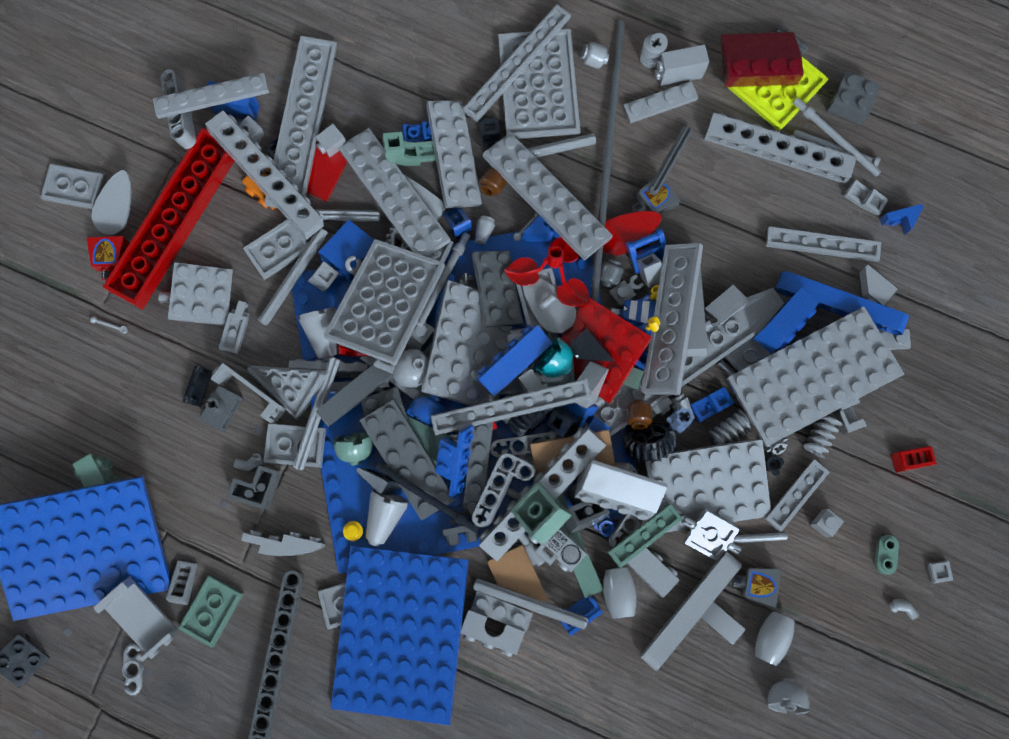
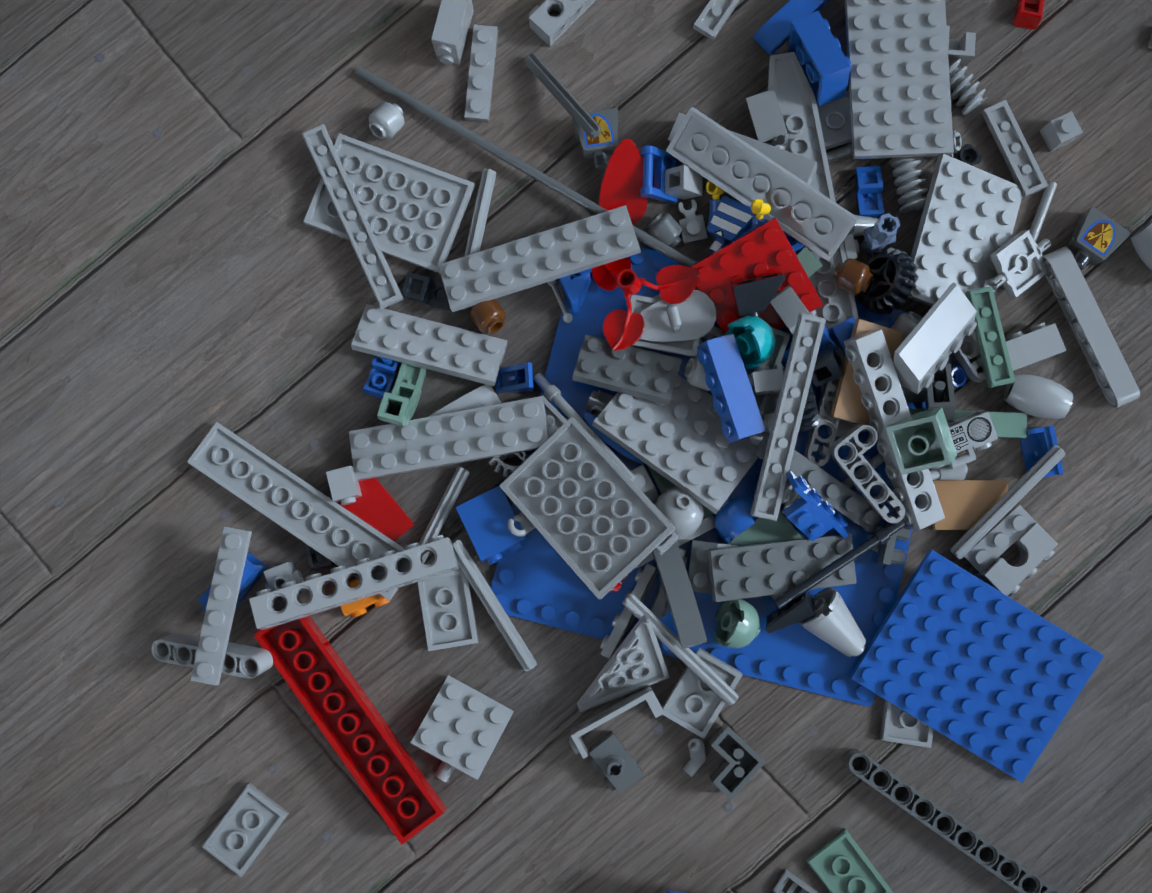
camera: 65 degrees left, 5 degrees up
(106, 252) = (357, 822): torso -> none
(113, 204) = (296, 788): light grey shield -> none
(123, 329) = (459, 841): light grey hinge -> none
(197, 386) = (573, 779): black hinge -> none
(235, 329) = (524, 704): light grey hinge -> none
(289, 546) = (818, 748): light grey slope -> none
(315, 326) = (576, 602): light grey cone -> none
(323, 277) = (513, 569): light grey panel -> none
(353, 531) = (832, 668): yellow plate -> none
(483, 230) = (541, 352): light grey cone -> none
(652, 49) = (417, 48): light grey piece -> none
(723, 623) = (1120, 298): light grey slope -> none
(885, 554) = (1121, 85): sand green plate -> none

